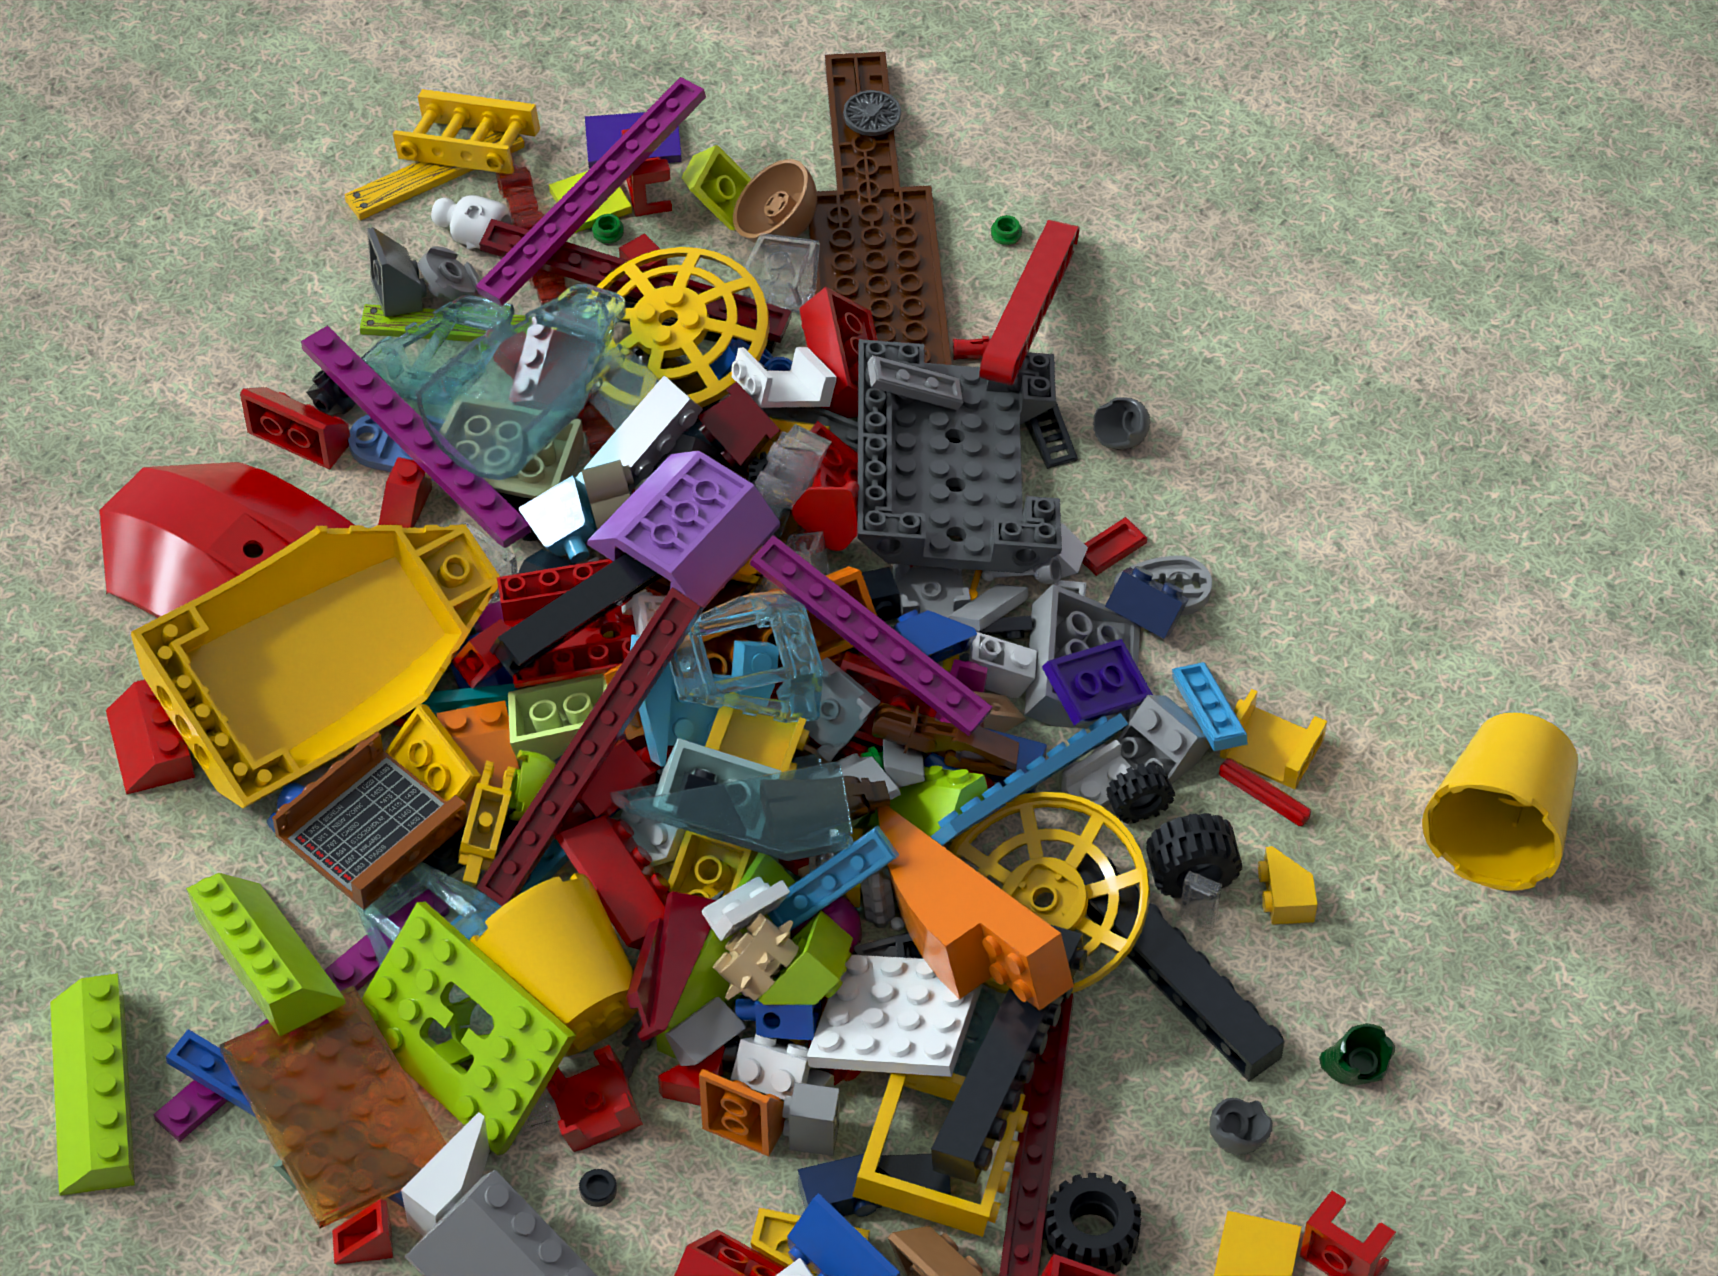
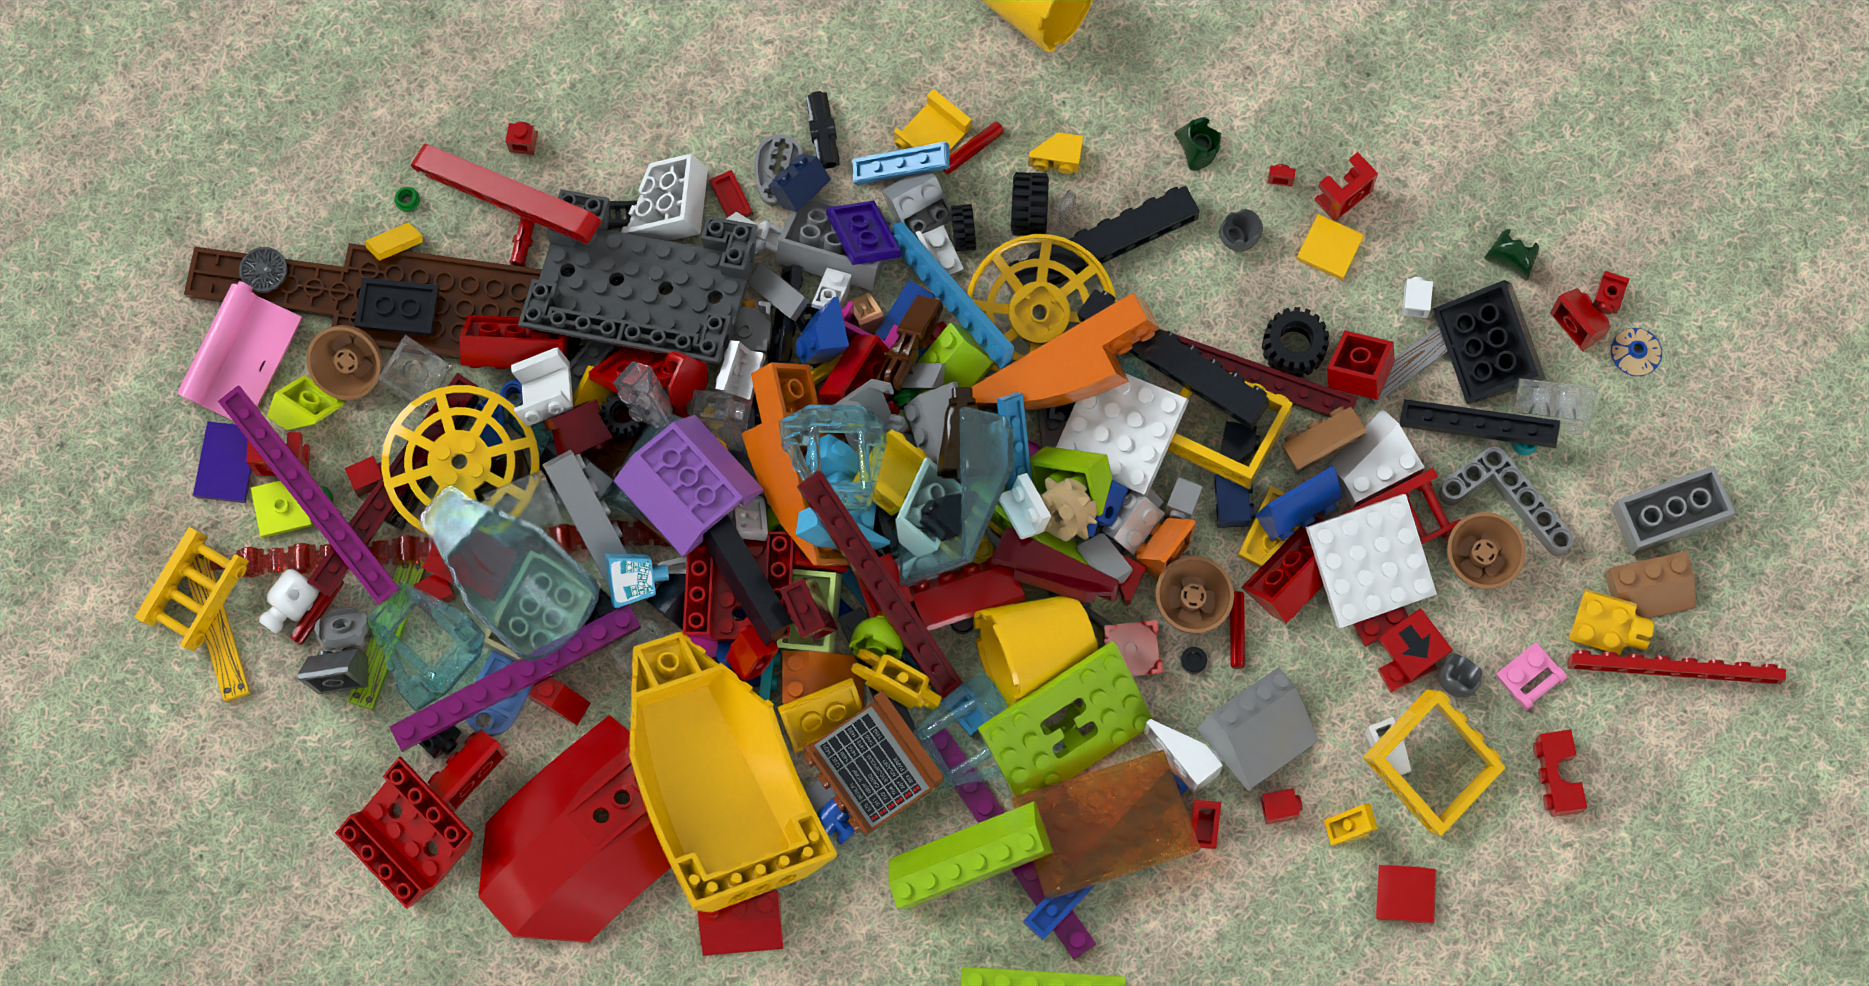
camera: 75 degrees left, 20 degrees up
(202, 382) = (399, 846): none -> red slope
(466, 252) = (308, 621): none -> red axle
(547, 684) = (808, 609): none -> dark red panel
(607, 488) = (628, 535): dark tan brick -> none
(652, 1233) = (1237, 632): none -> red axle
(679, 1136) = (1205, 586): none -> medium nougat piece
(766, 116) = (235, 348): none -> bright pink door
(859, 239) = (397, 307): none -> black plate
(871, 635) = (828, 369): magenta plate -> none
(874, 562) = (737, 369): none -> white bracket
(915, 382) = (572, 293): light grey tile -> none
(944, 224) = (394, 241): none -> yellow tile
(1084, 479) = (670, 200): none -> white wedge
(1118, 317) = (521, 134): none -> red brick
(1121, 423) = (628, 160): dark grey hair -> none
(1232, 620) = (822, 129): none -> black piece
(1344, 1166) = (1281, 175): none -> red plate

